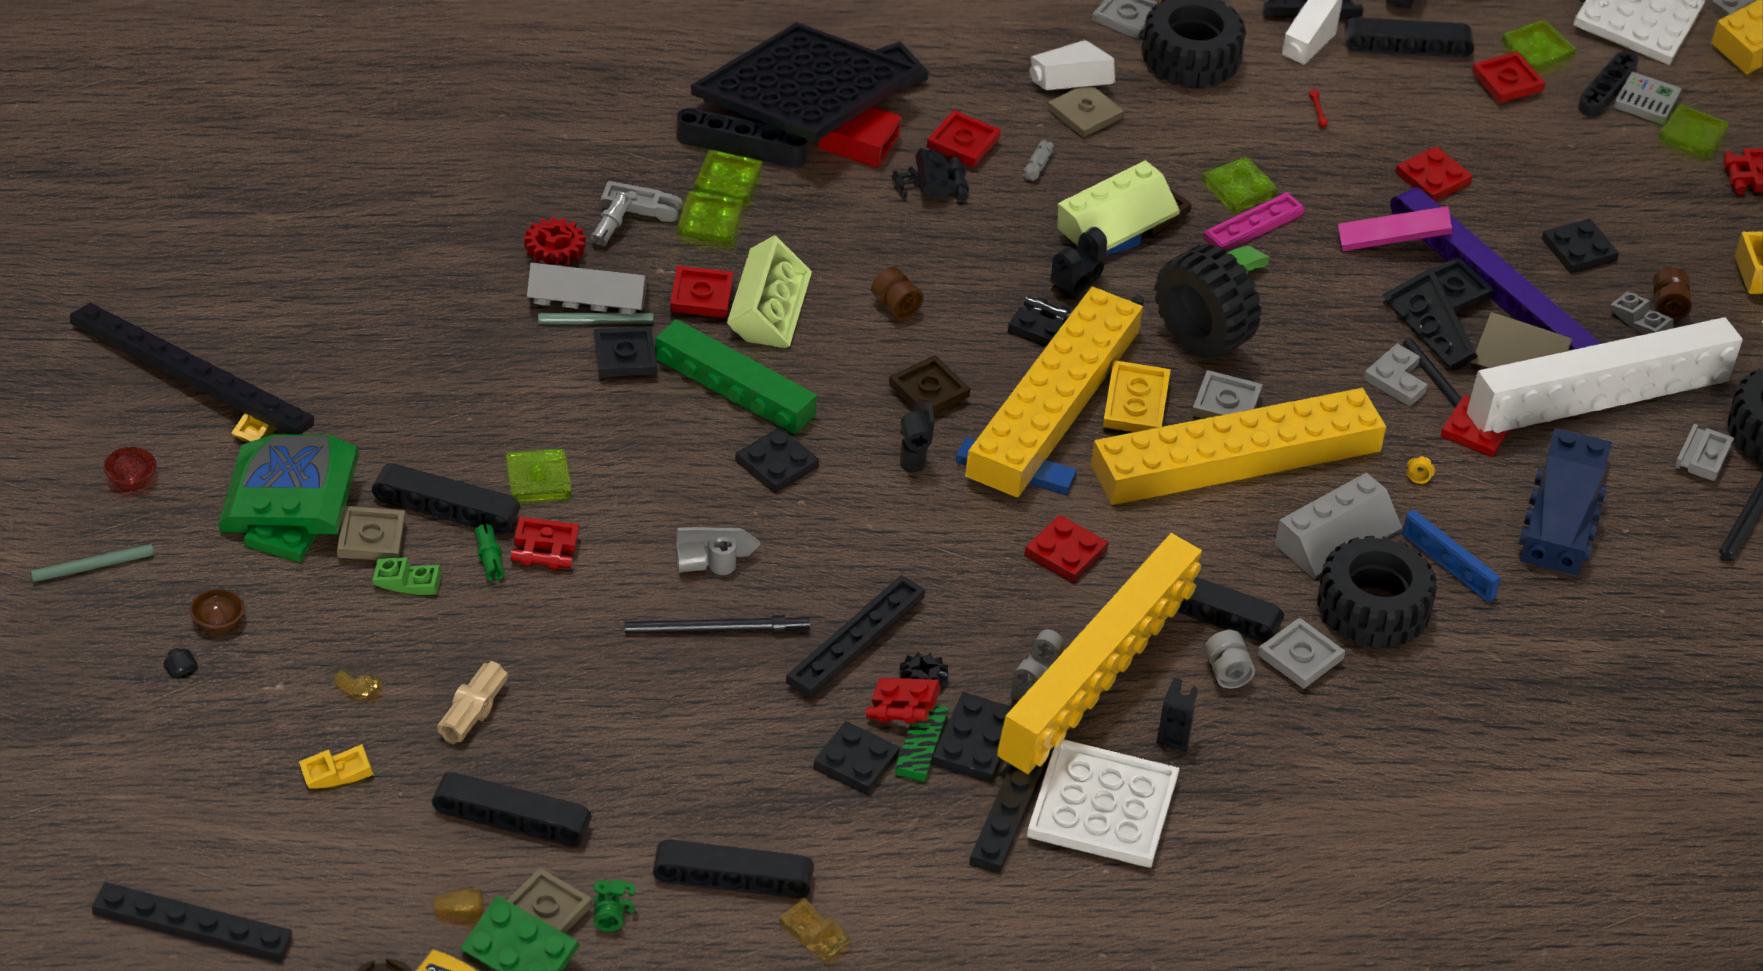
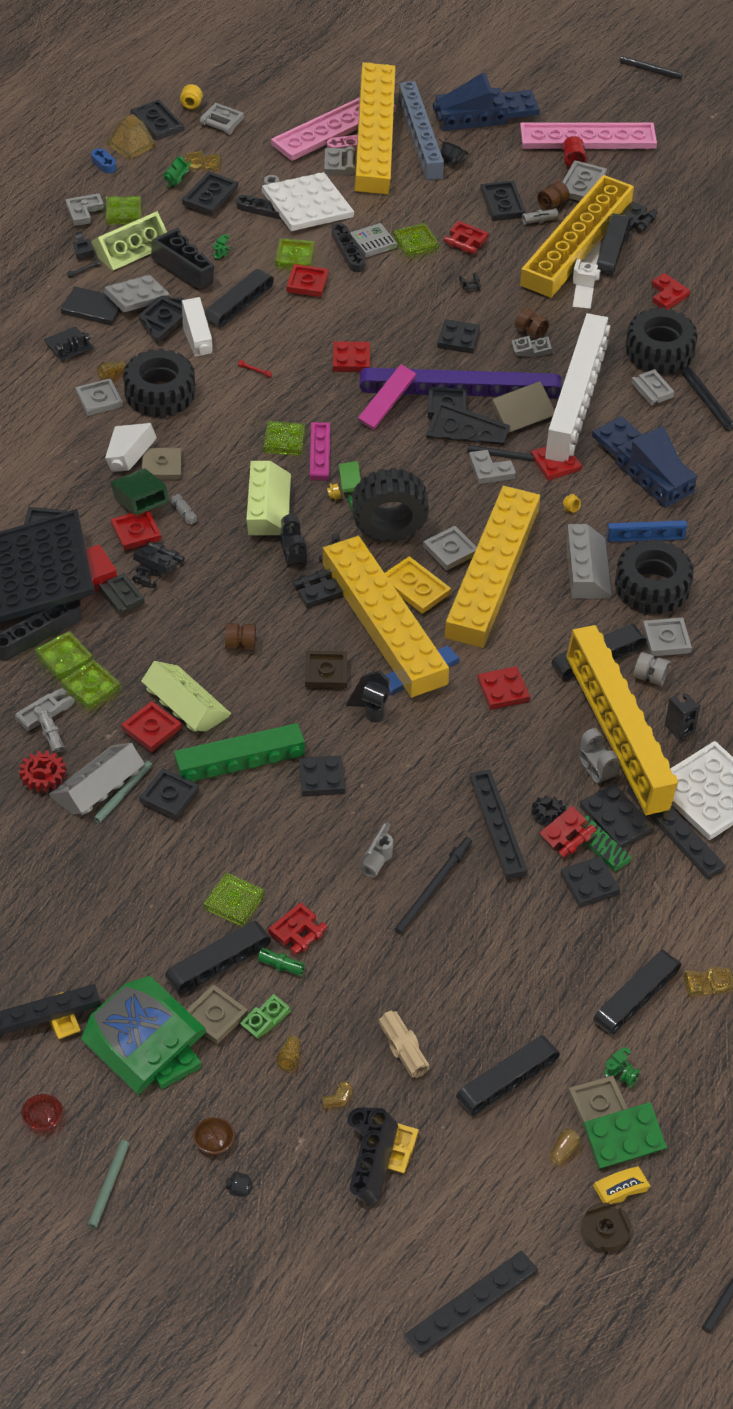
camera: 50 degrees left, 5 degrees up
(299, 741) = (378, 1135): none -> black beam
(375, 616) = (288, 1056): none -> clear yellow cone
(860, 174) = (121, 593): none -> pearl dark grey plate
(1014, 109) = (140, 491): none -> dark green brick
(1689, 217) = (464, 283): none -> black piece

